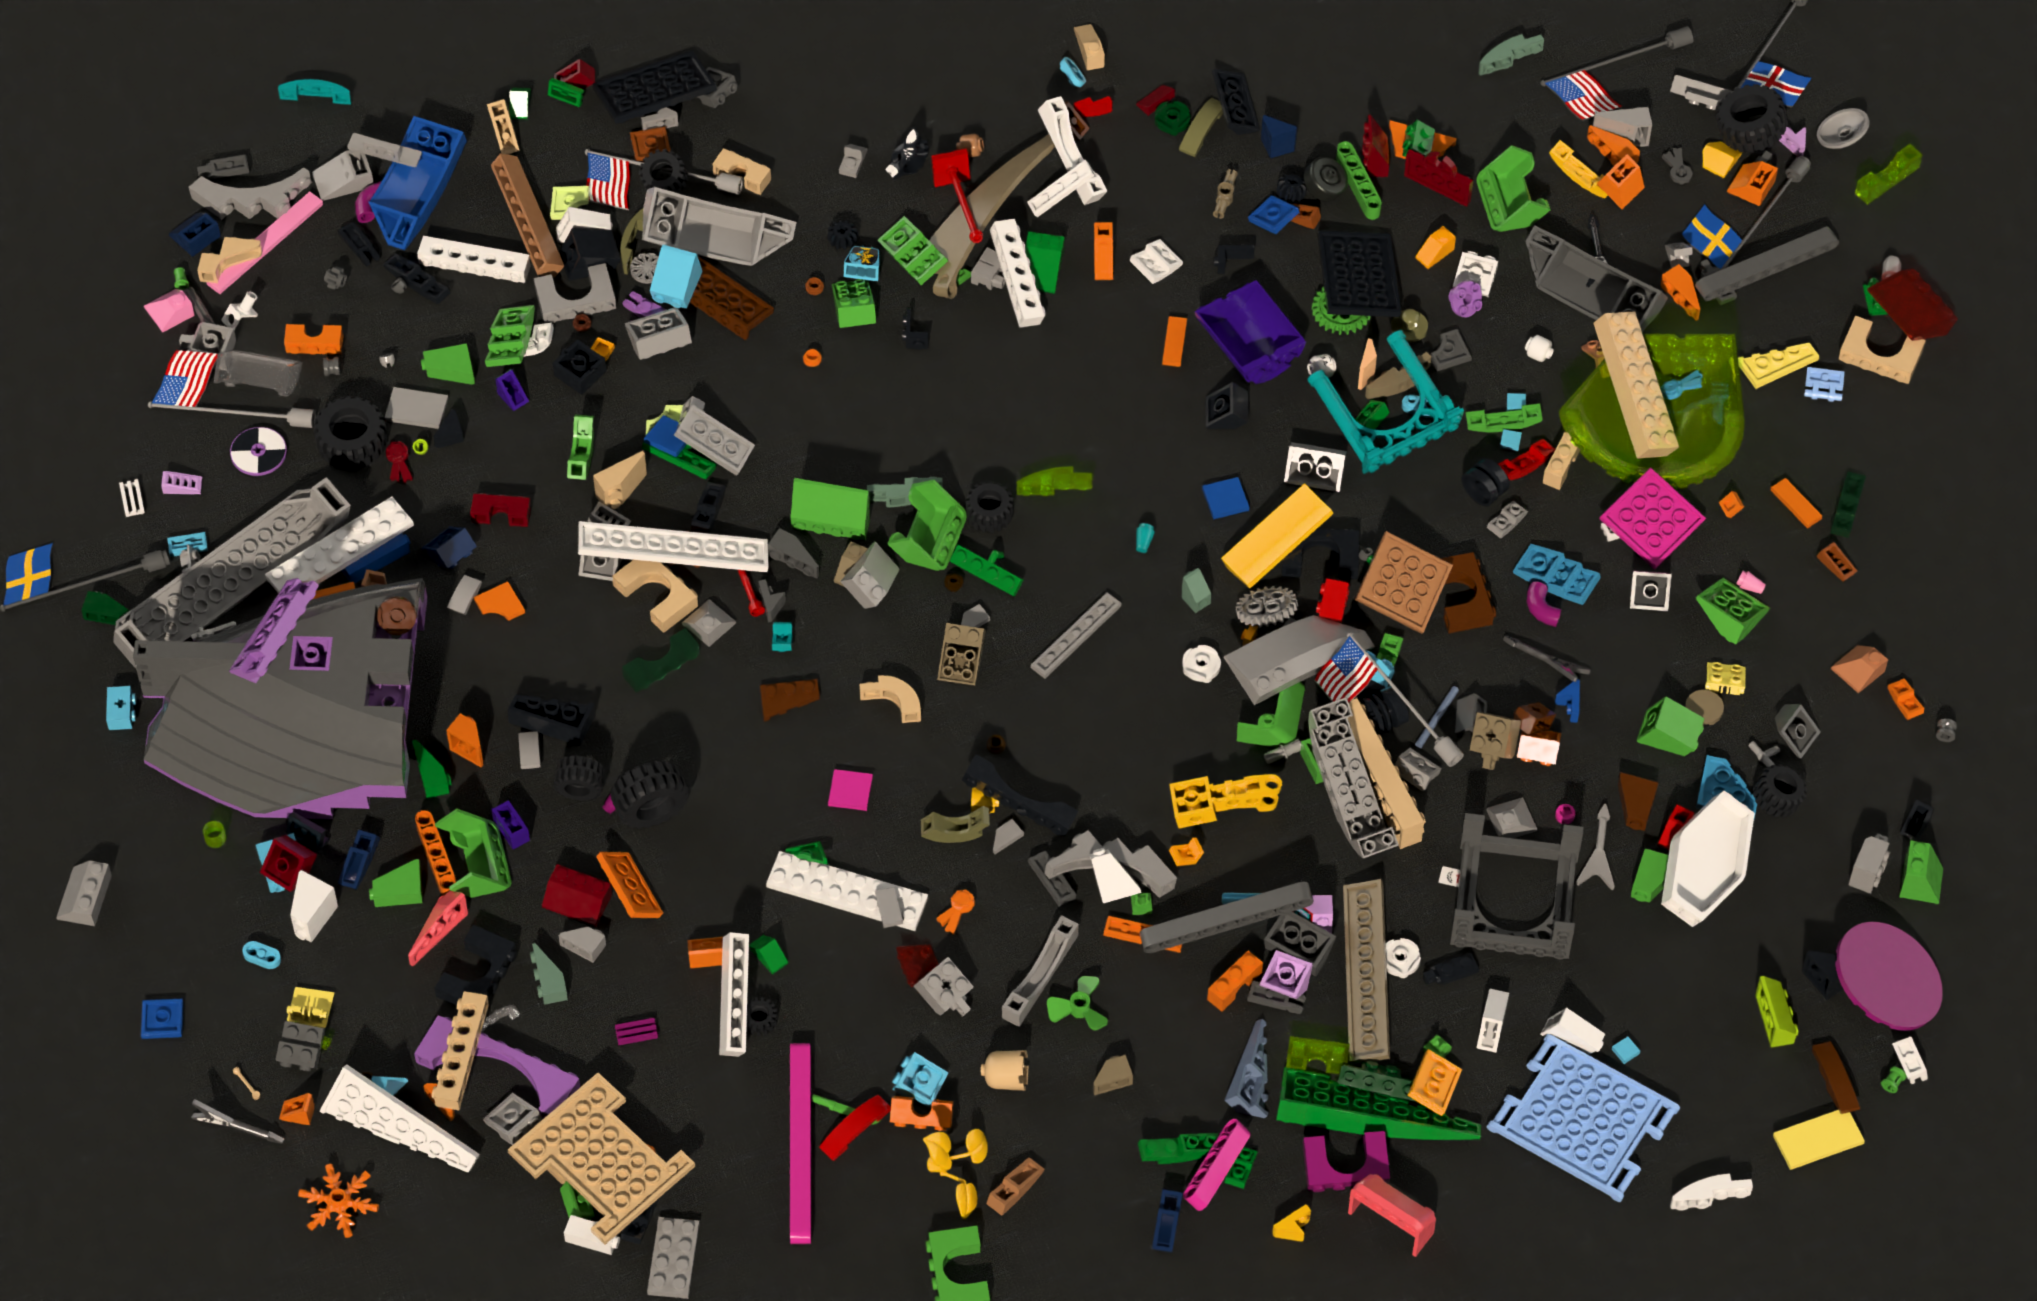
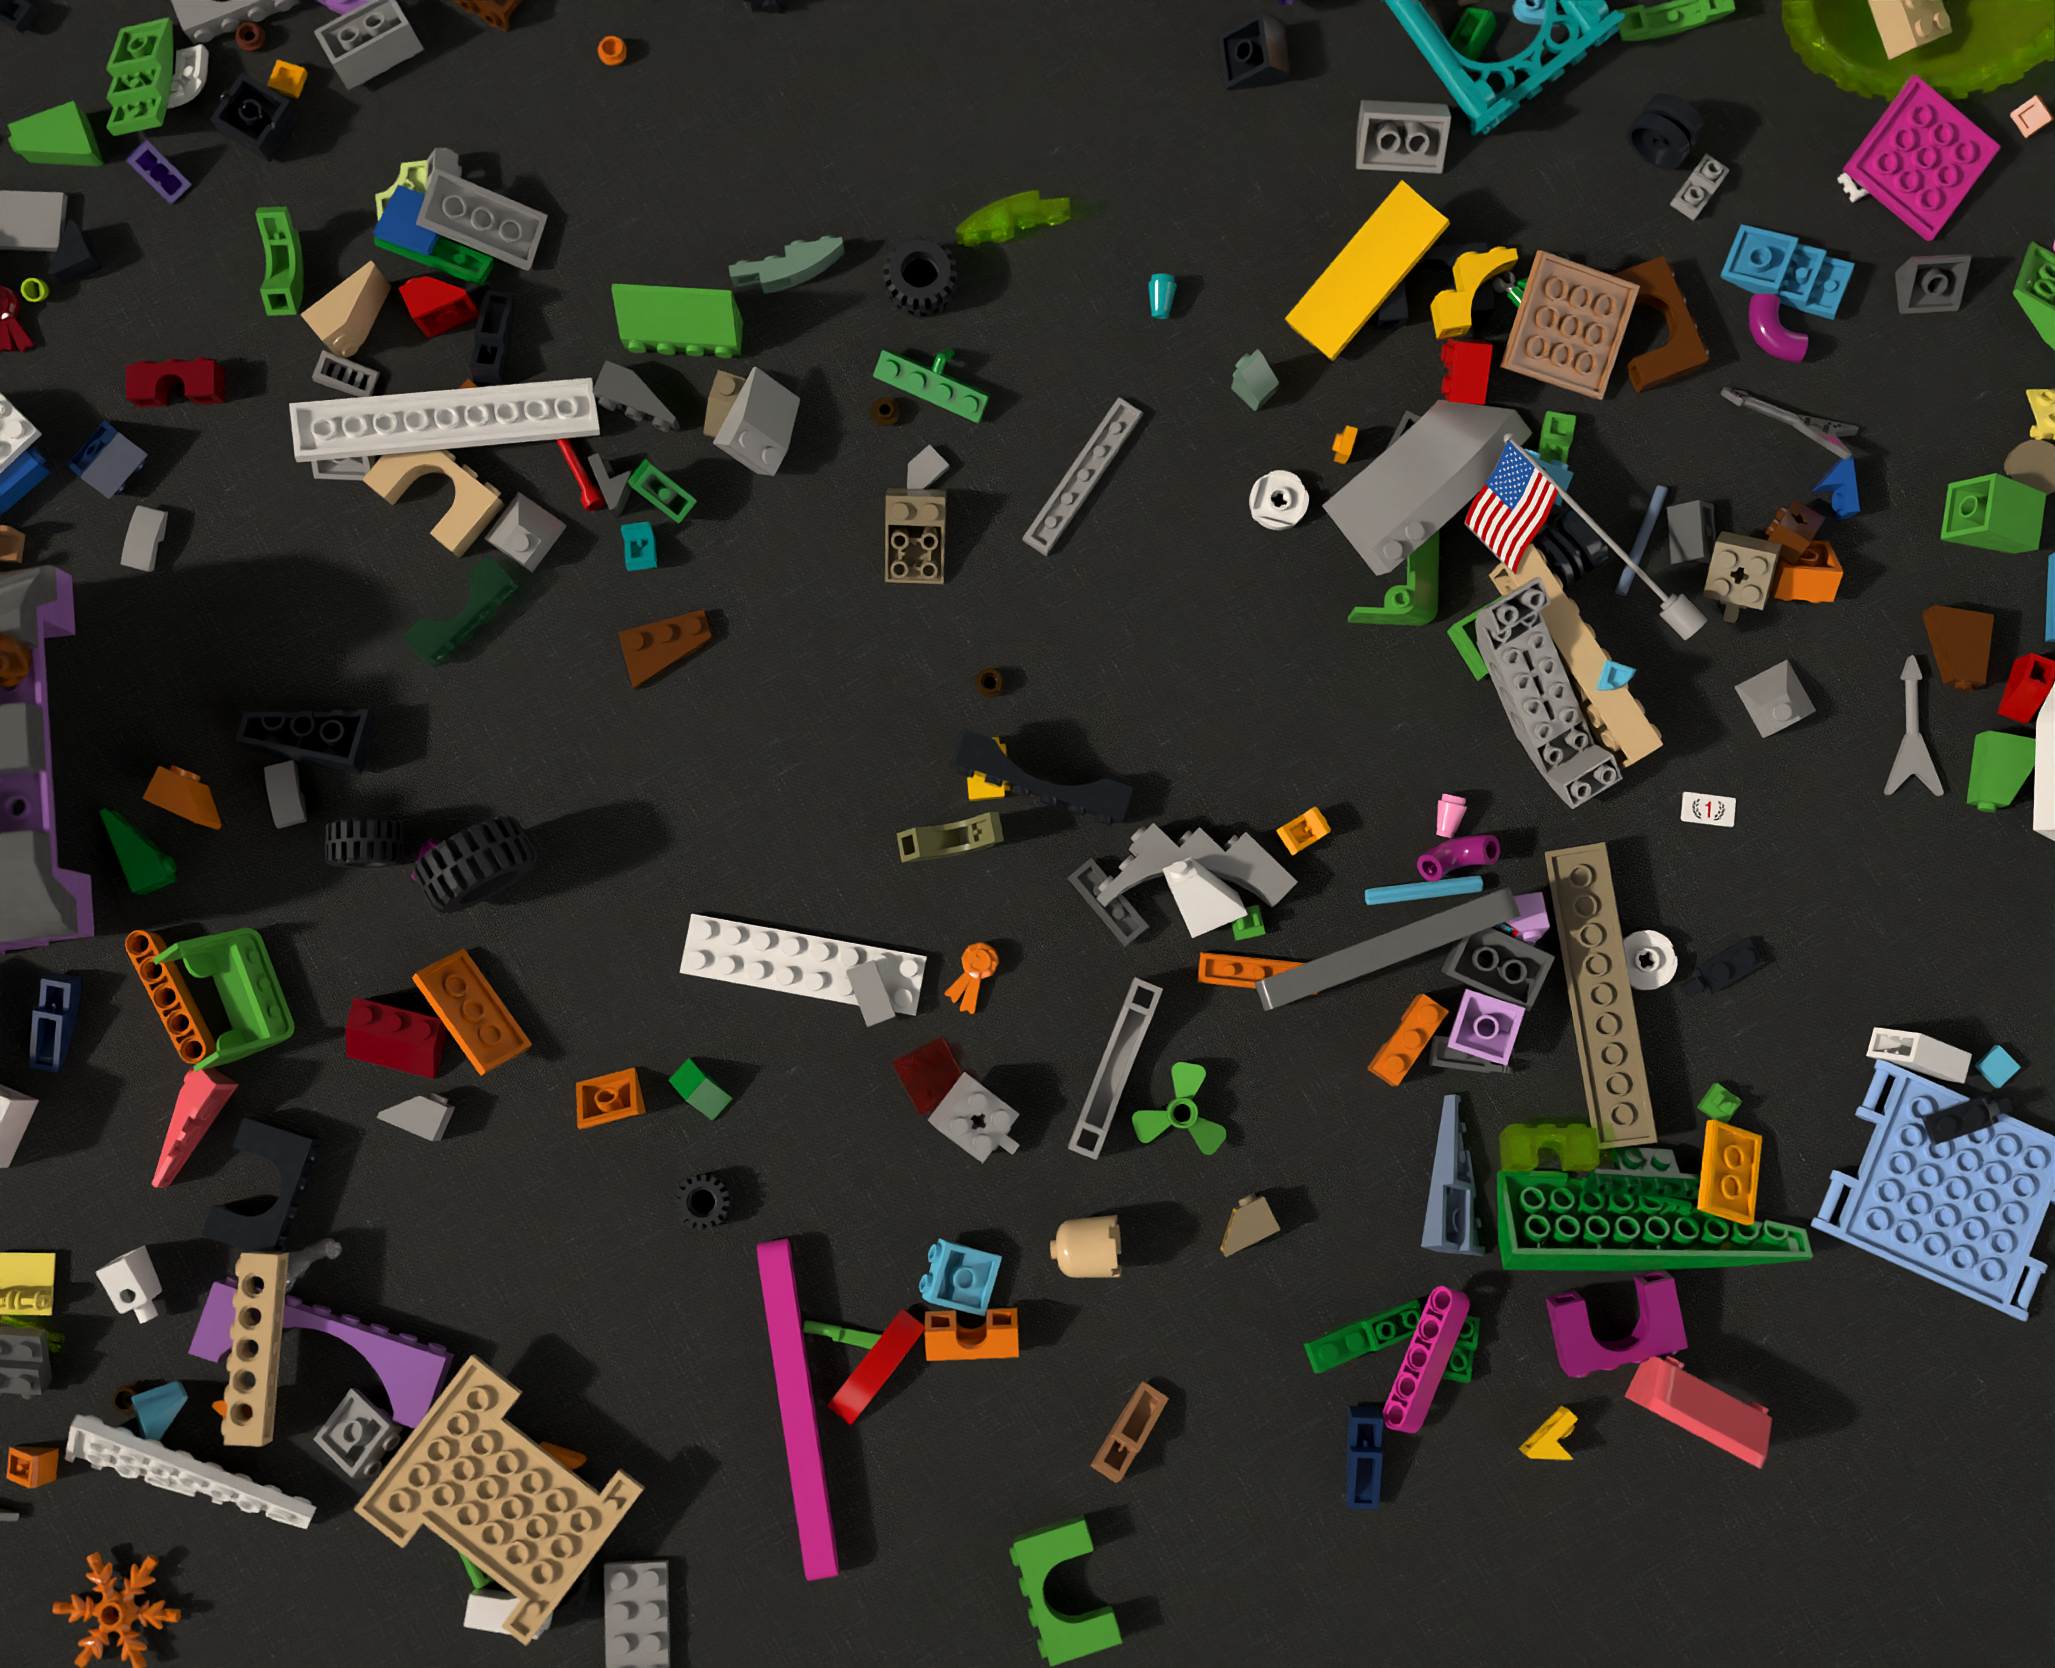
camera: 10 degrees left, 25 degrees up
(384, 1010) = (132, 1283): none -> white torso
(398, 886) = (123, 1059): bright green slope -> none
(501, 601) = (201, 539): orange tile -> none
(510, 824) = (274, 933): dark purple brick -> none
(551, 979) = (378, 1187): sand green slope -> none
(635, 1028) = (497, 1260): magenta tile -> none
(678, 484) = (437, 305): none -> red slope
(734, 994) = (658, 1189): white brick -> none
(803, 605) = (661, 491): none -> green brick
(809, 852) = (737, 911): green tile -> none
(850, 790) = (782, 791): dark pink tile -> none
(896, 691) = (829, 615): tan arch -> none
(933, 529) = (840, 329): bright green windscreen -> none
(939, 1161) = (1013, 1418): yellow plant -> none
(1006, 835) = (1028, 836): light grey tile -> none
(1198, 800) = (1310, 744): yellow brick -> none
(1225, 498) = (1273, 208): blue tile -> none
(1266, 606) = (1386, 395): light grey gear -> none
(1277, 879) = (1457, 854): none -> magenta cylinder
(1283, 751) = (1422, 634): light grey axle -> none
(1285, 855) = (1450, 813): none -> bright pink cone
(1345, 545) = (1453, 309): none -> yellow arch
(1397, 778) = (1614, 676): none -> medium azure tile
(1416, 769) = (1626, 636): light grey bracket -> none
(1492, 1020) = (1800, 1049): white slope -> none
(1510, 440) = (1686, 49): medium azure tile -> none
(1510, 941) = (1882, 896): dark grey arch -> none
(1529, 461) = (1720, 79): red slope -> none
(1560, 462) = (1770, 85): tan arch -> none
(1565, 813) = (1853, 678): dark pink tile -> none
(1595, 1071) = (1963, 1118): none -> black hinge

